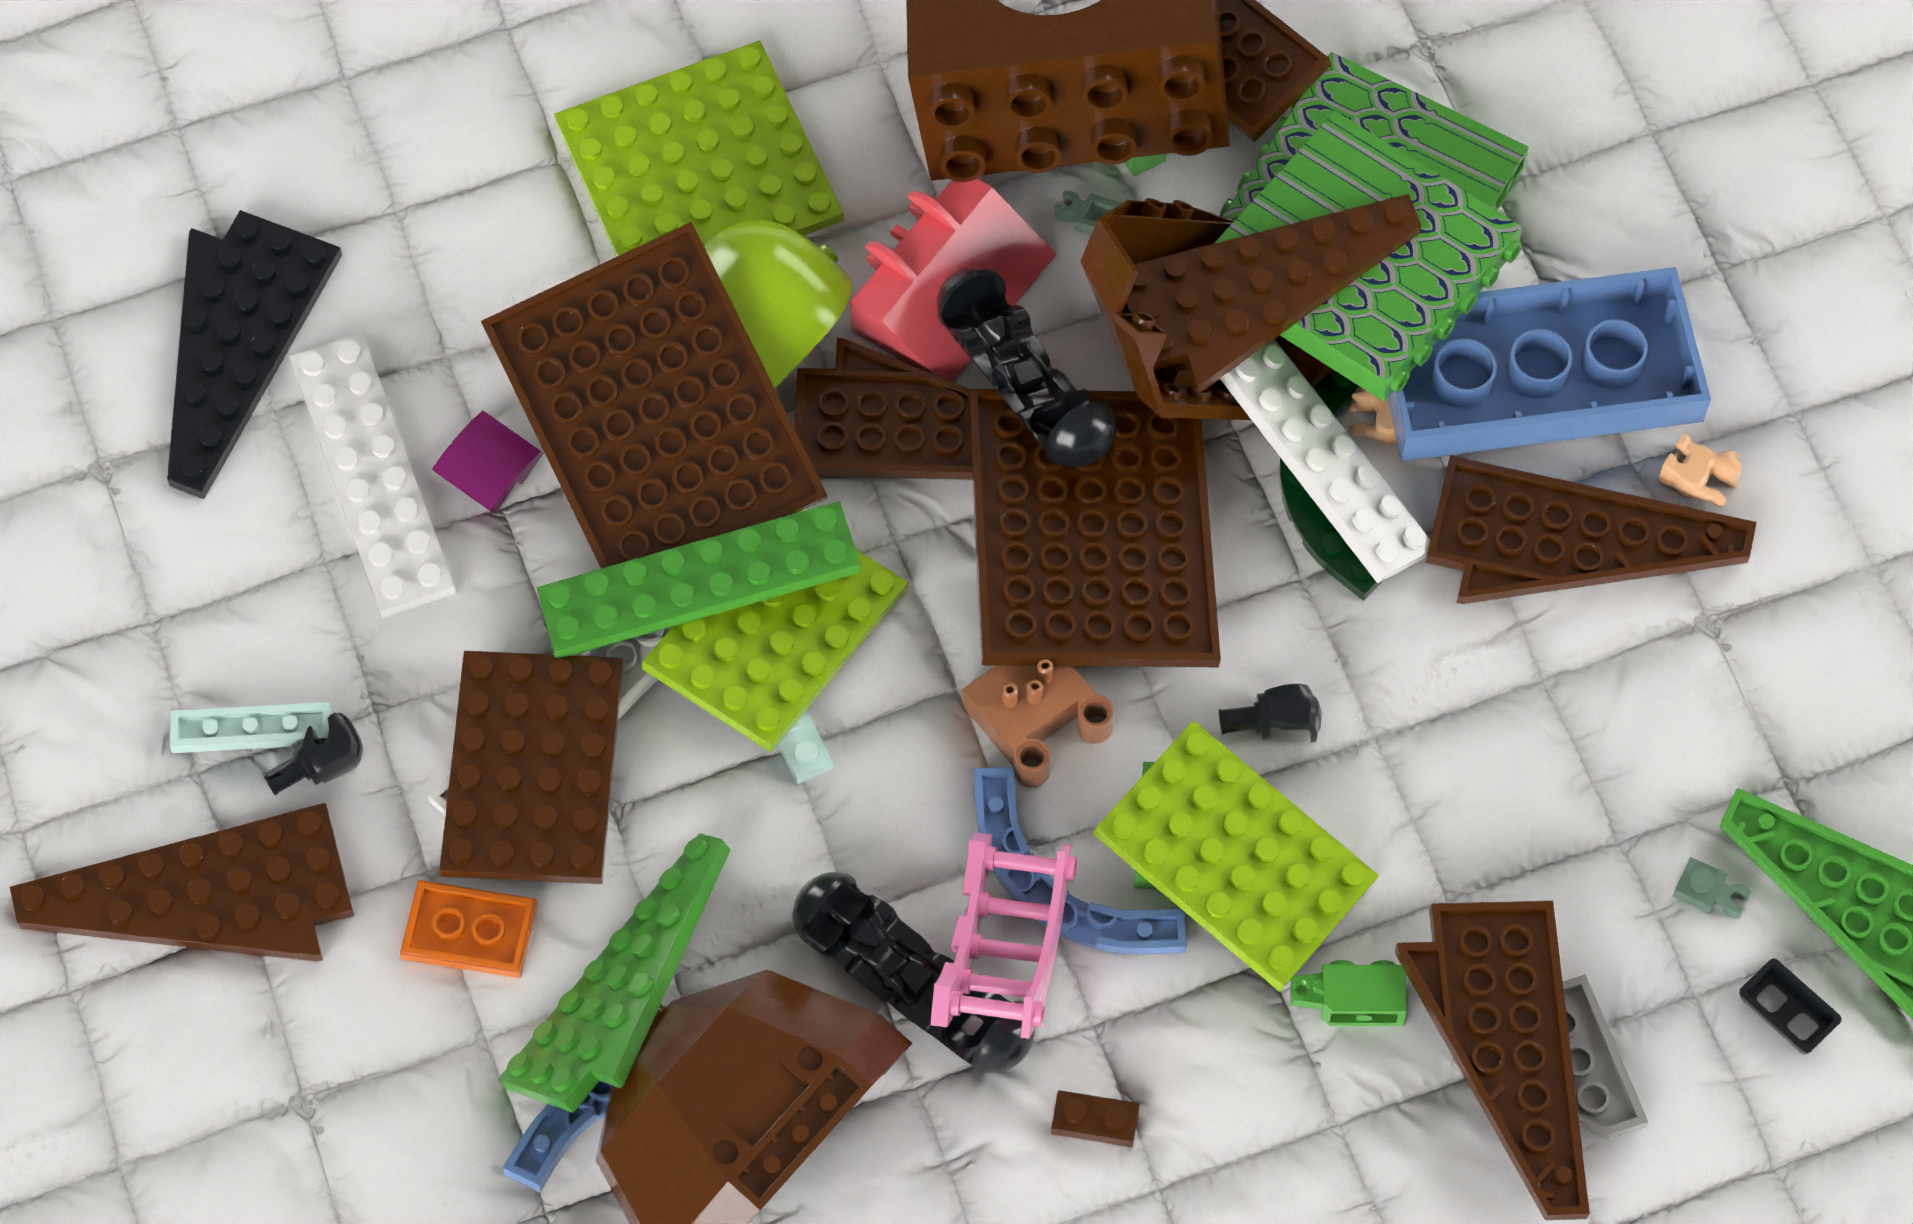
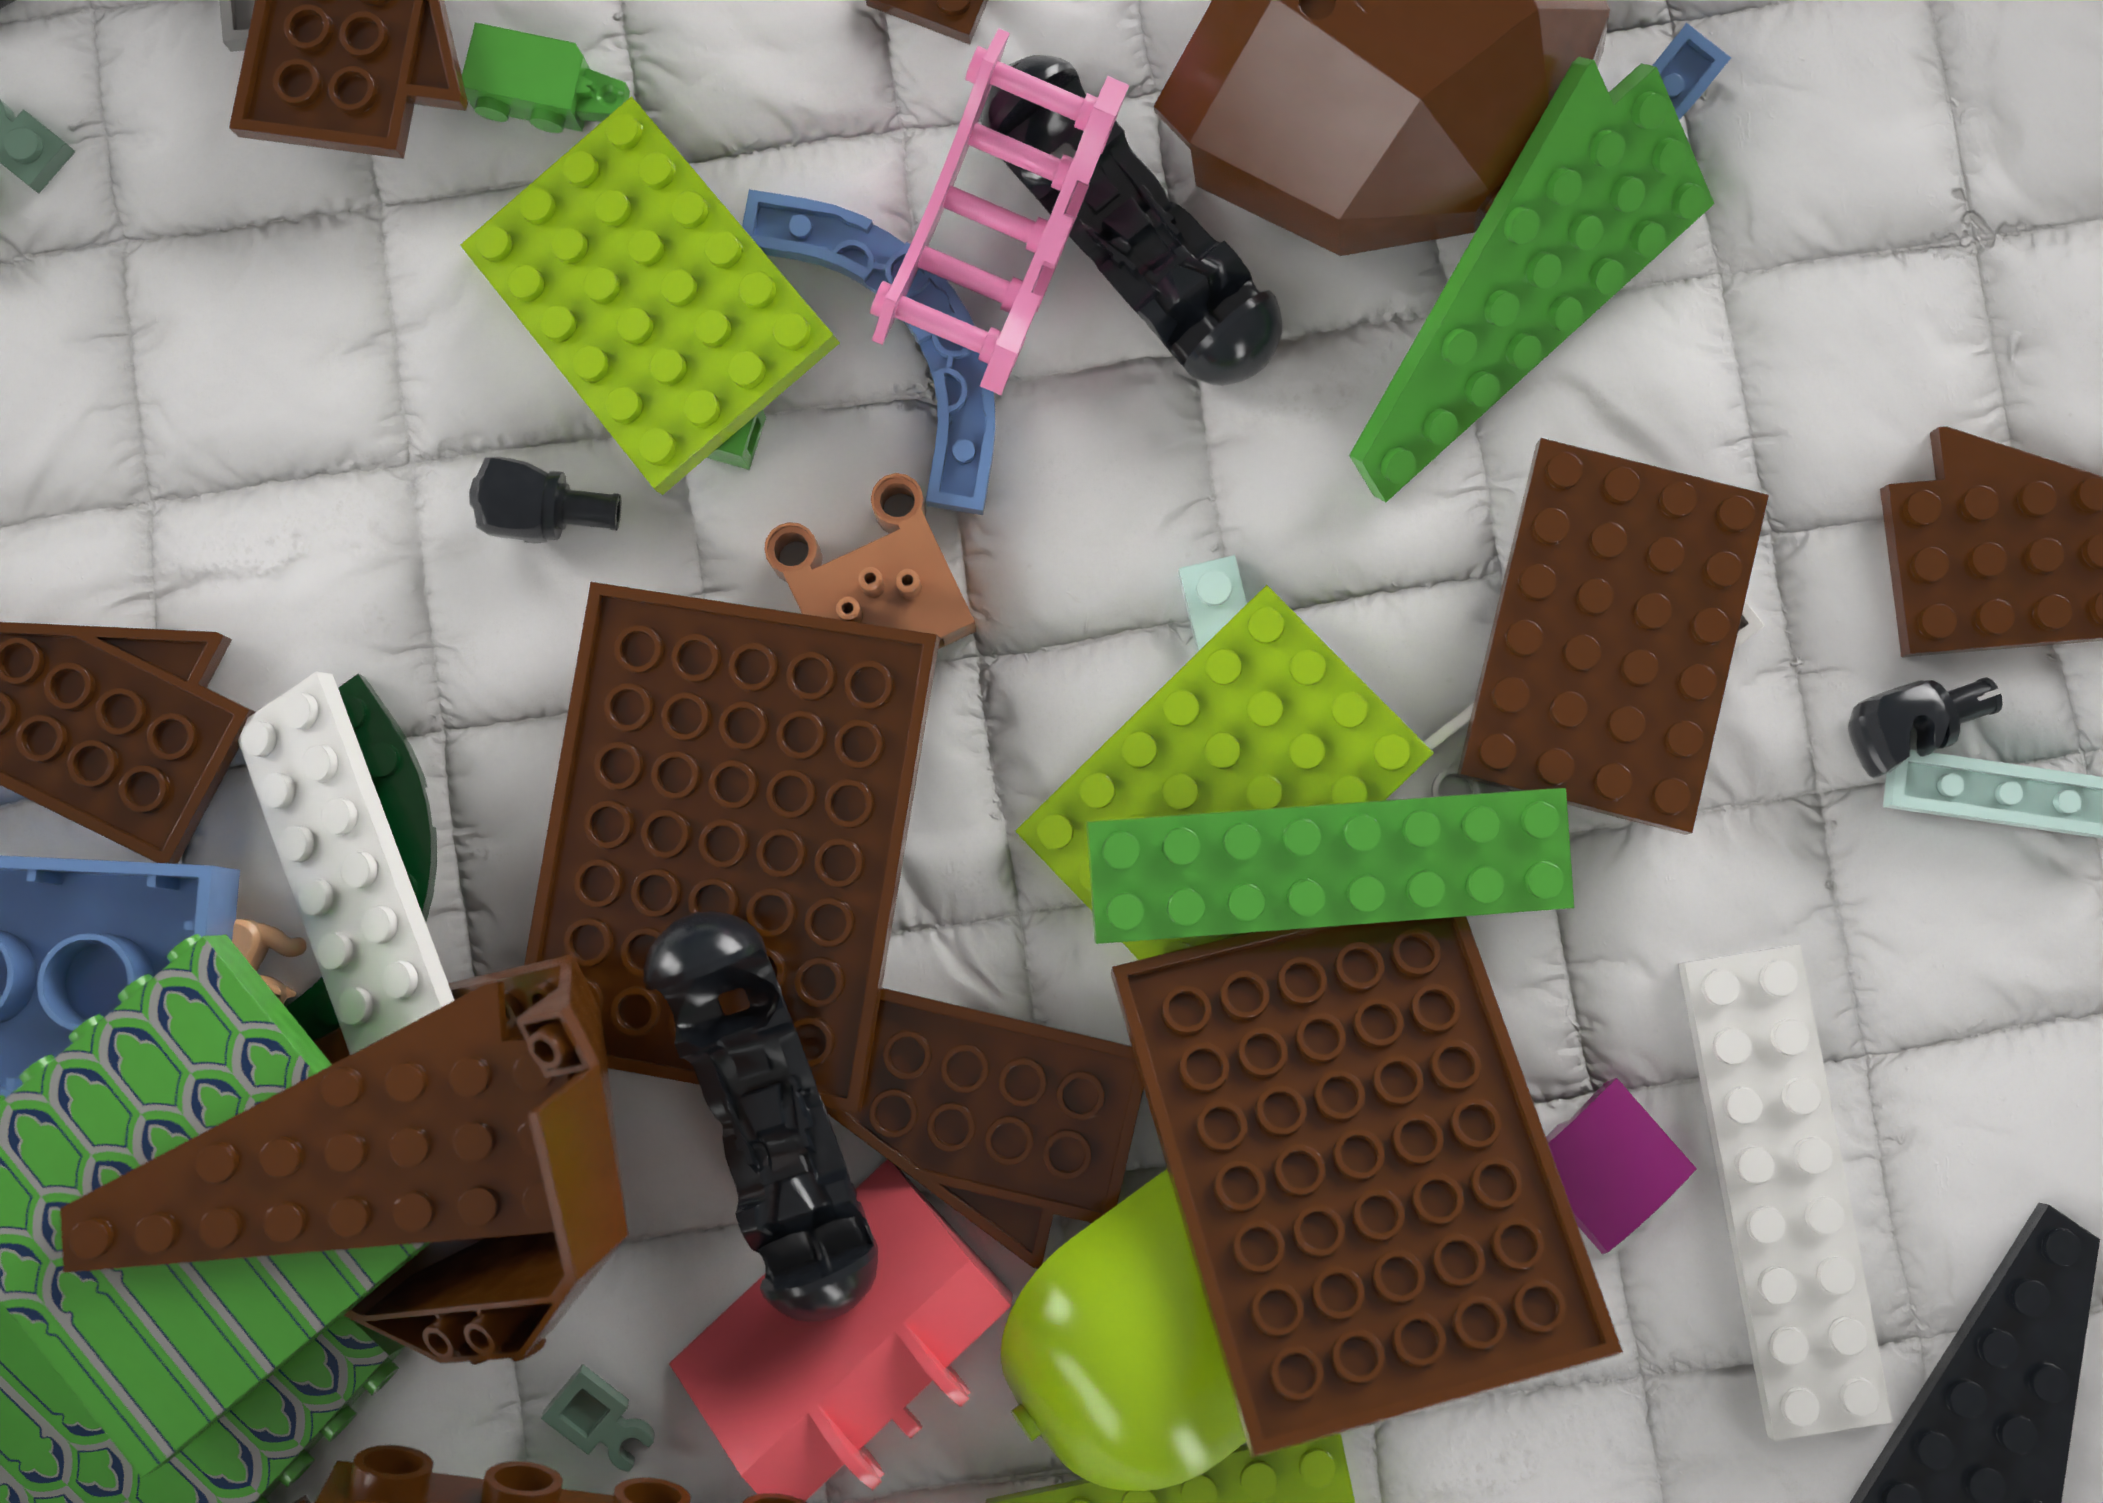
camera: 170 degrees left, 20 degrees up
(469, 929) = (1725, 428): orange tile -> none

